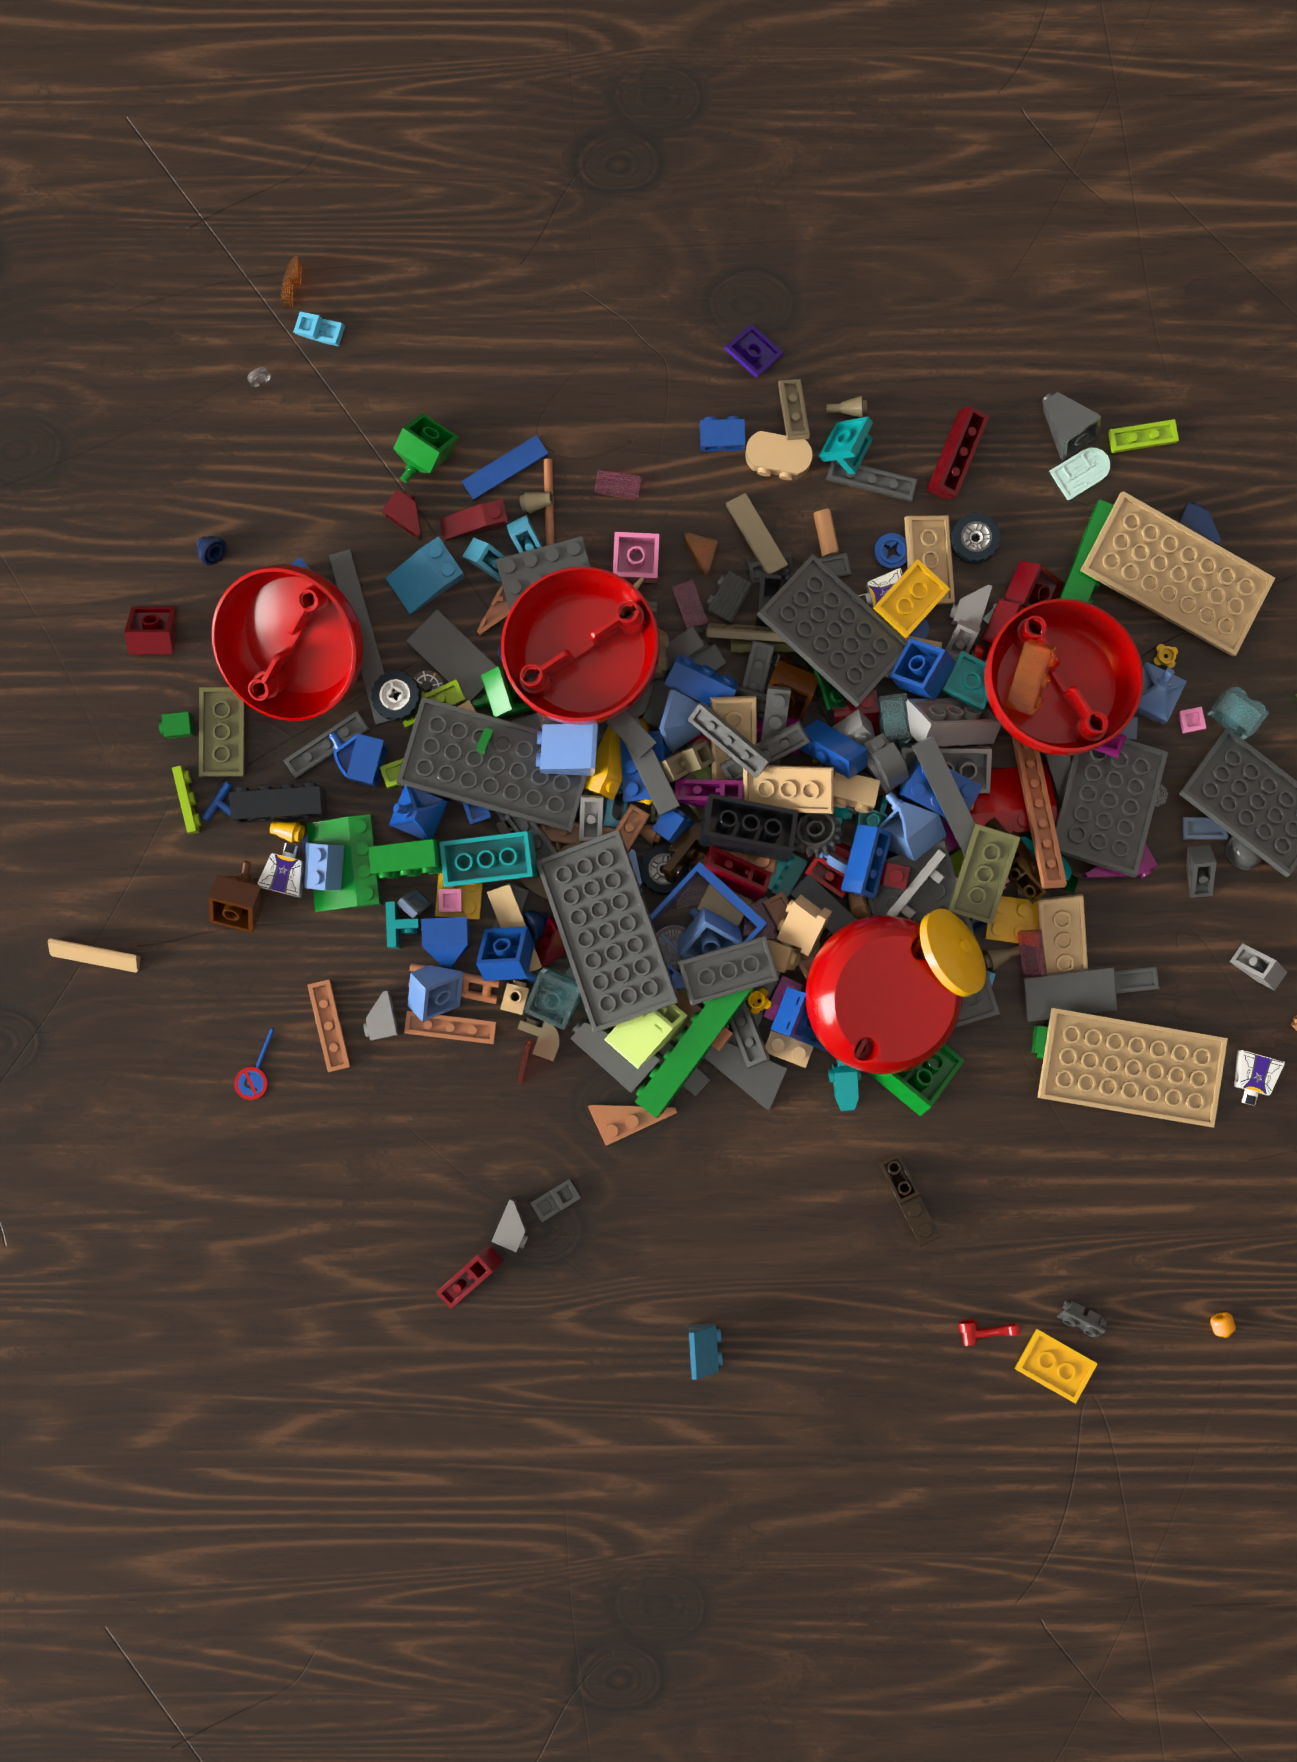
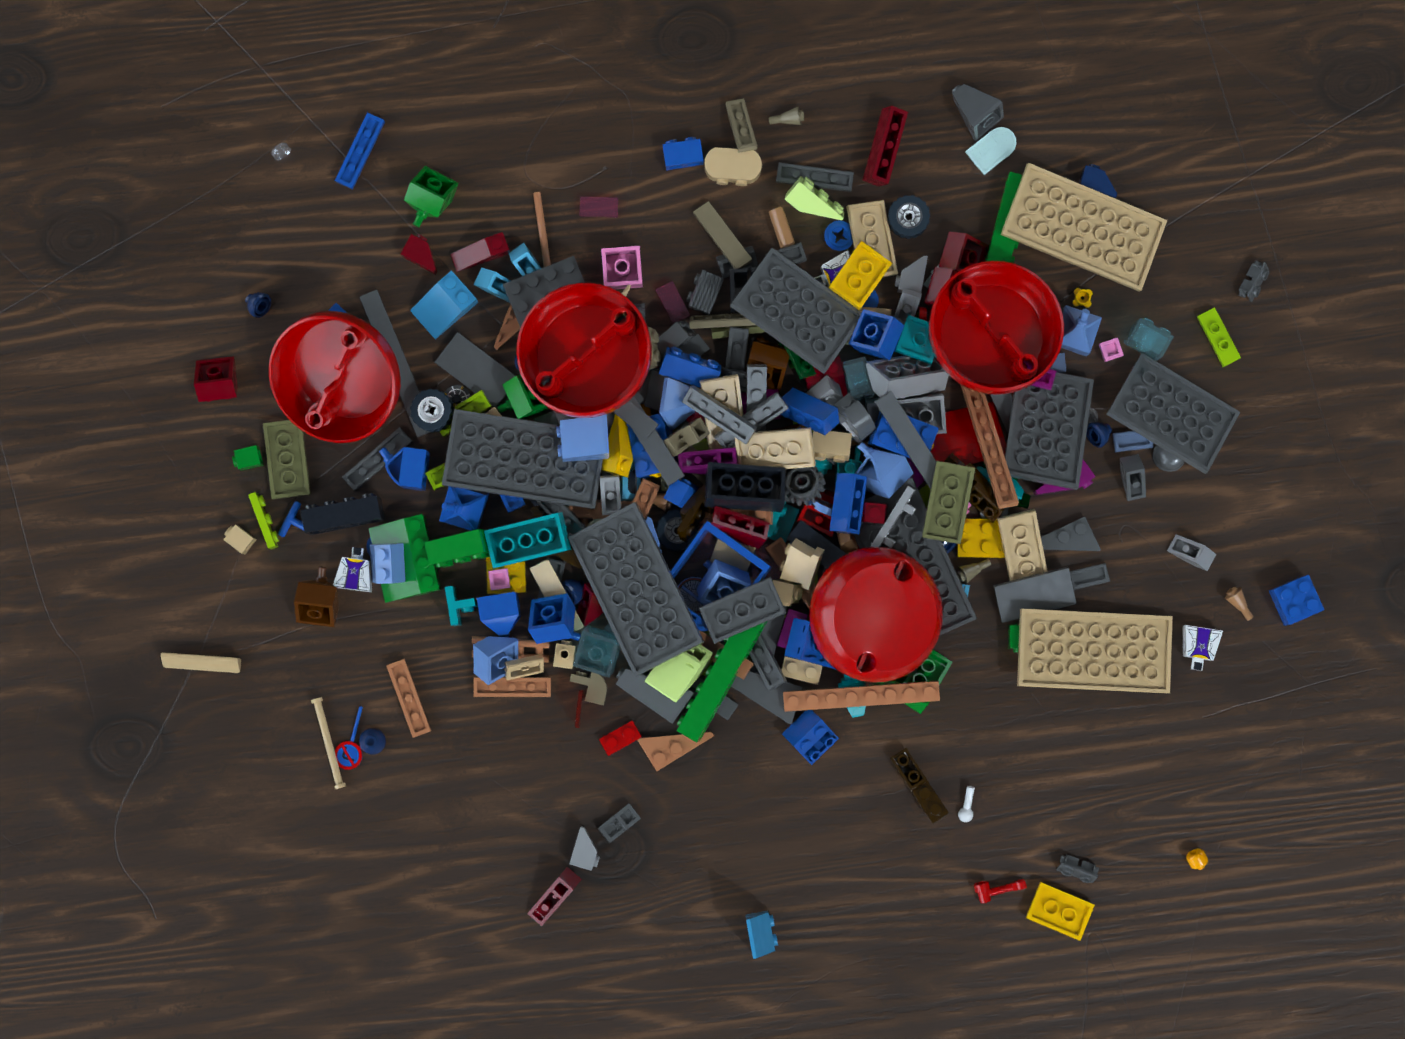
camera: 10 degrees left, 0 degrees up
(155, 818) = (239, 539): none -> tan brick
(229, 1066) = (328, 743): none -> tan bar
(281, 1070) = (372, 741): none -> dark blue brick
(289, 831) = (353, 536): yellow cone -> none
(291, 277) = (298, 63): clear orange slope -> none
(319, 329) = (327, 104): medium azure slope -> none
(350, 387) = (360, 151): none -> blue plate
(381, 1019) = (453, 687): light grey slope -> none
(414, 903) = (469, 585): sand blue tile -> none
(467, 1005) = (524, 667): none -> tan tile
(485, 740) = (512, 440): green tile -> none
(505, 468) = (501, 204): blue tile -> none
(534, 501) = (530, 229): dark tan cone -> none
(568, 1101) = (620, 738): none -> red plate
(702, 549) = (678, 255): clear orange slope -> none
(753, 1001) = (767, 632): yellow plate -> none
(754, 351) = (701, 79): dark purple slope -> none
(789, 1126) = (810, 736): none -> blue slope
(848, 443) = (790, 149): teal bracket -> none
(855, 1087) = (861, 696): none -> nougat plate
(862, 504) = (810, 200): none -> yellowish green slope
(952, 952) = (929, 572): yellow dish -> none
(959, 1238) = (966, 814): none -> white bar
(1031, 677) = (968, 330): clear orange brick -> none
(1032, 952) = (998, 563): clear pink tile -> none
(1121, 932) = (1074, 537): none -> dark grey wing
(1143, 436) = (1041, 112): lime plate -> none
(1166, 815) = (1098, 433): none -> dark blue brick

